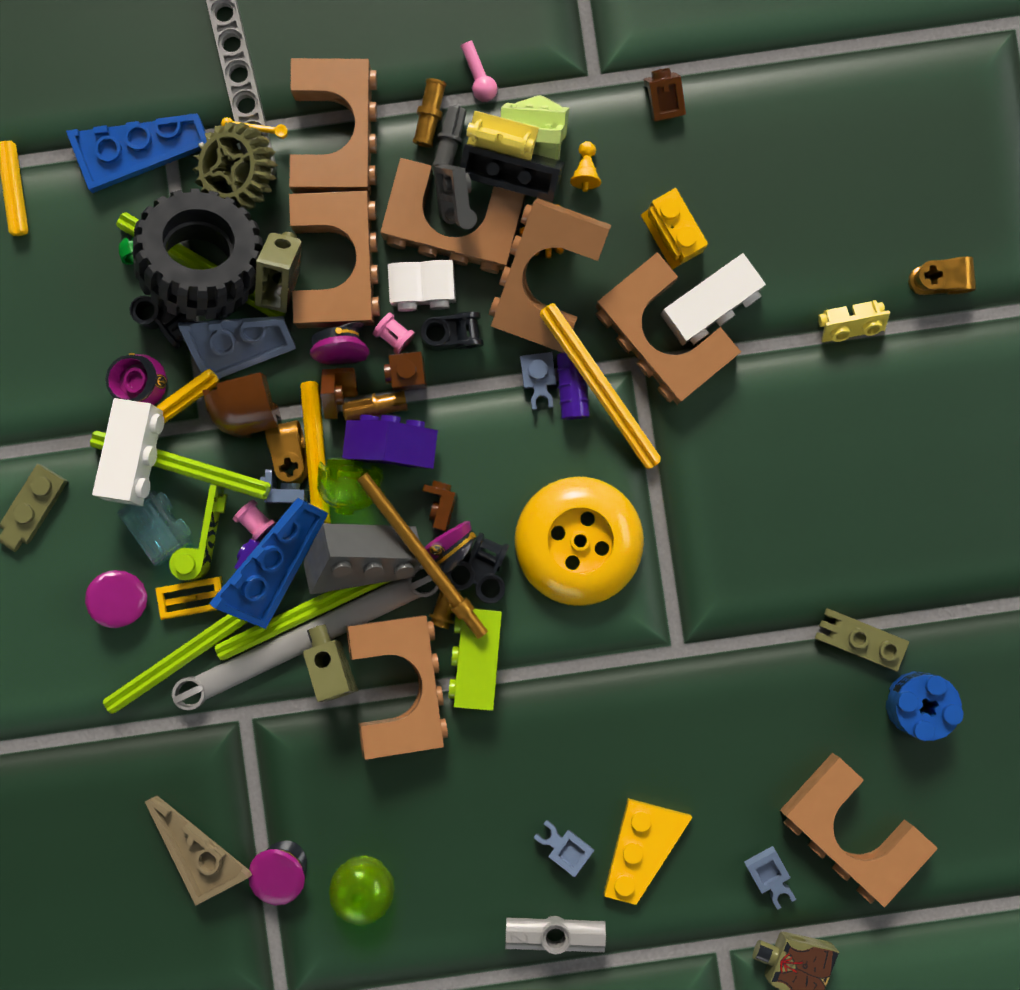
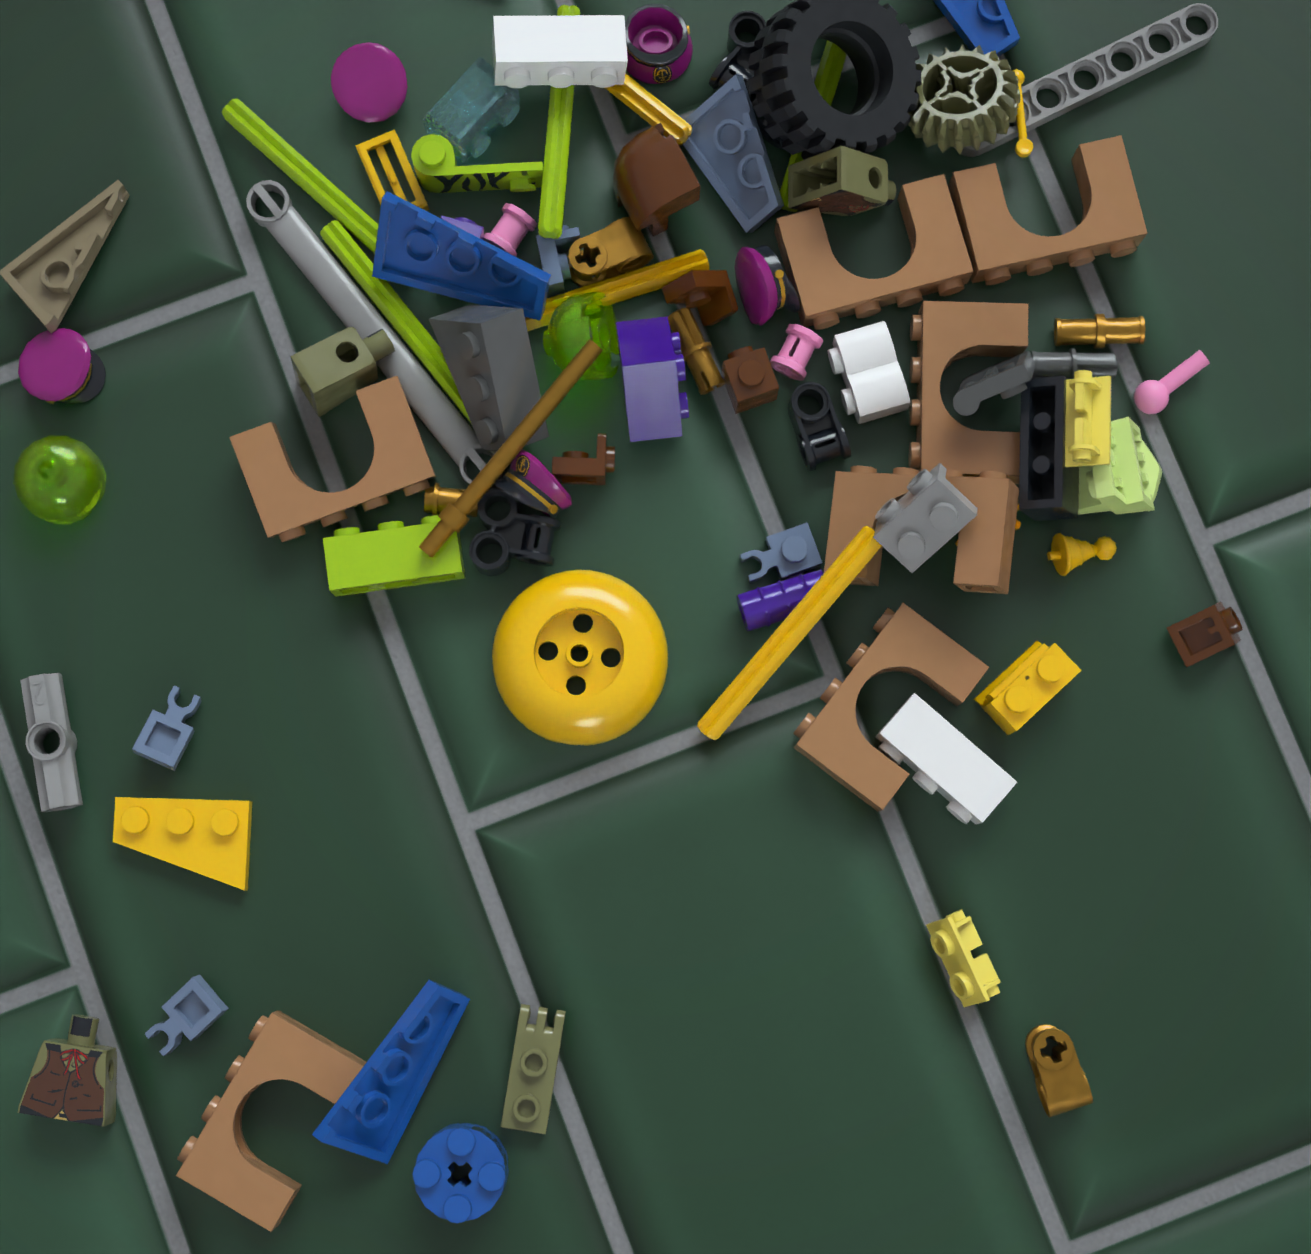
camera: 75 degrees right, 5 degrees down
(545, 270) = (923, 518): none -> light grey bracket
(852, 741) = (391, 1083): none -> blue wing

